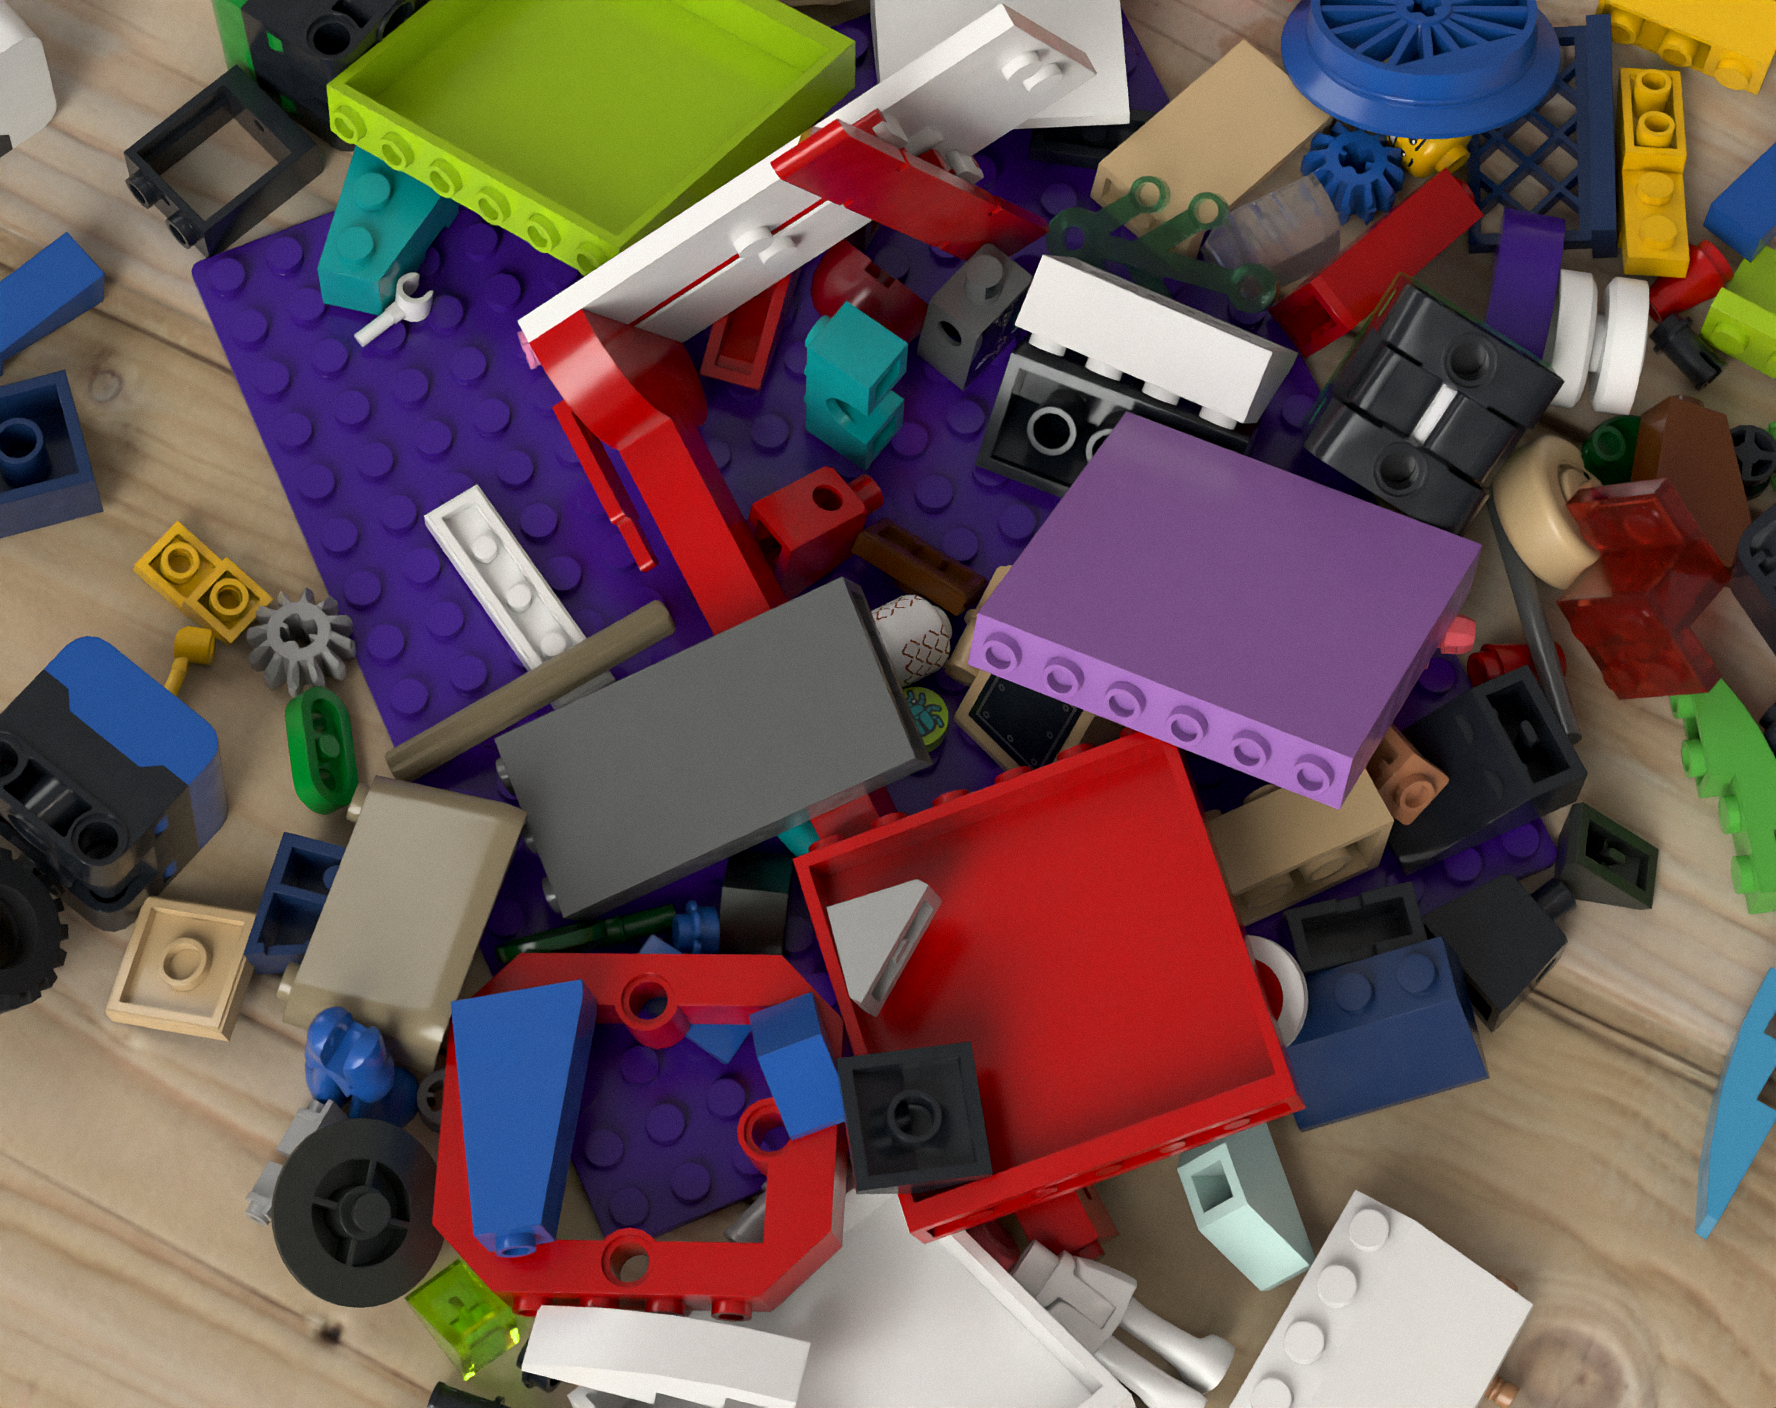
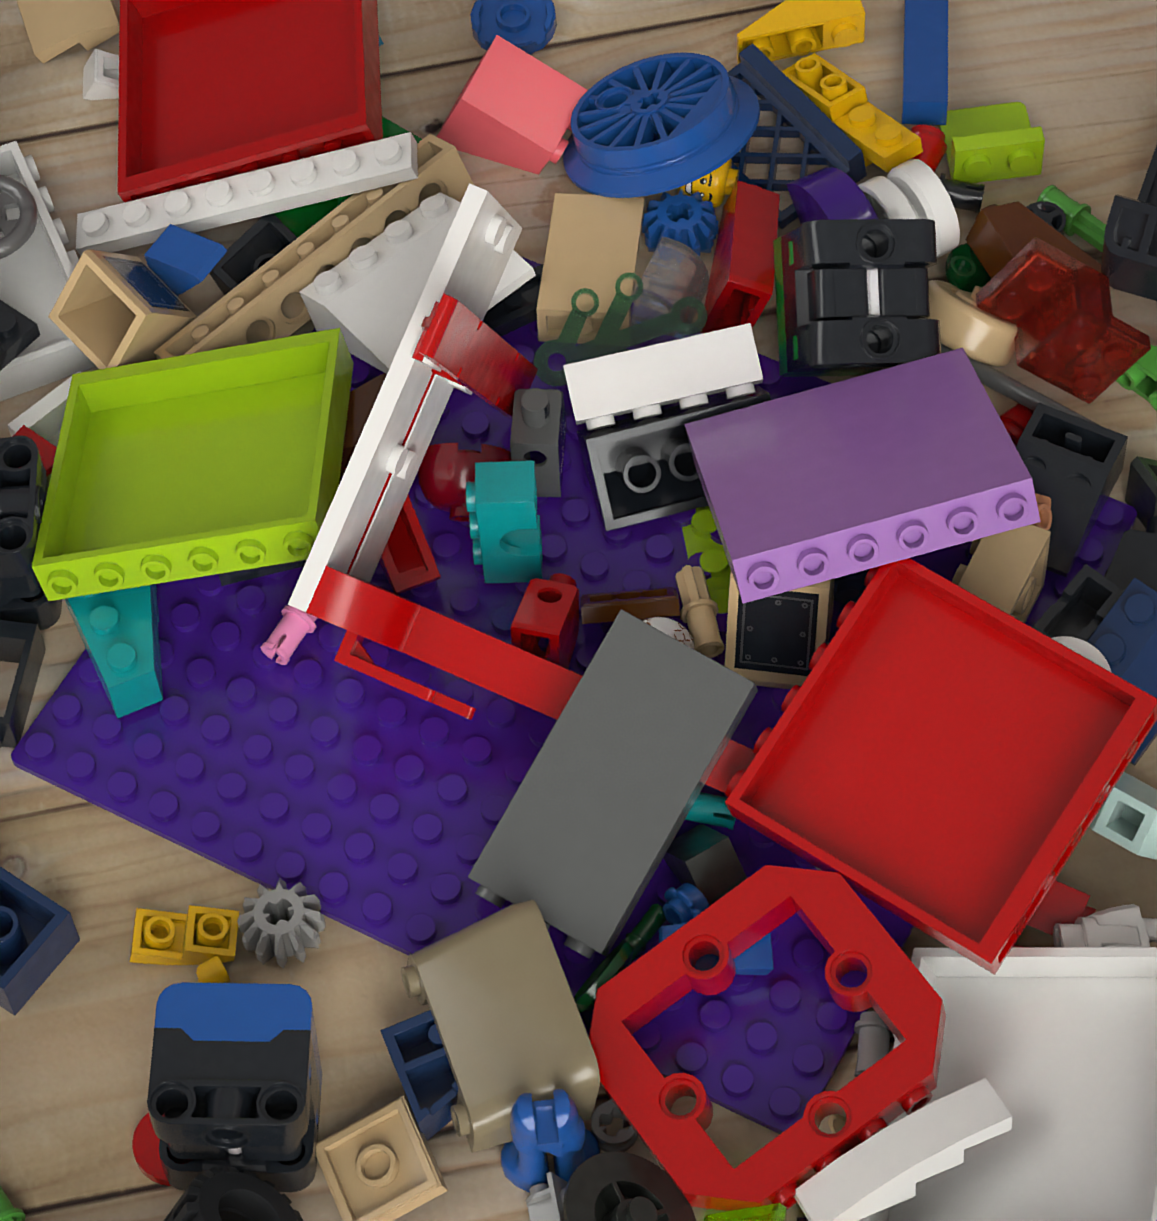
camera: 30 degrees left, 10 degrees down
(321, 750) = (351, 976): green plate -> none
(403, 308) = (173, 683): white hand -> none
(508, 584) = (399, 800): white tile -> none
(520, 1100) = (677, 1066): blue slope -> none
(530, 692) = (458, 841): dark tan axle -> none
(798, 1065) = (839, 914): blue slope -> none
(879, 936) = (822, 803): light grey slope -> none
(914, 1119) = (940, 890): black slope -> none

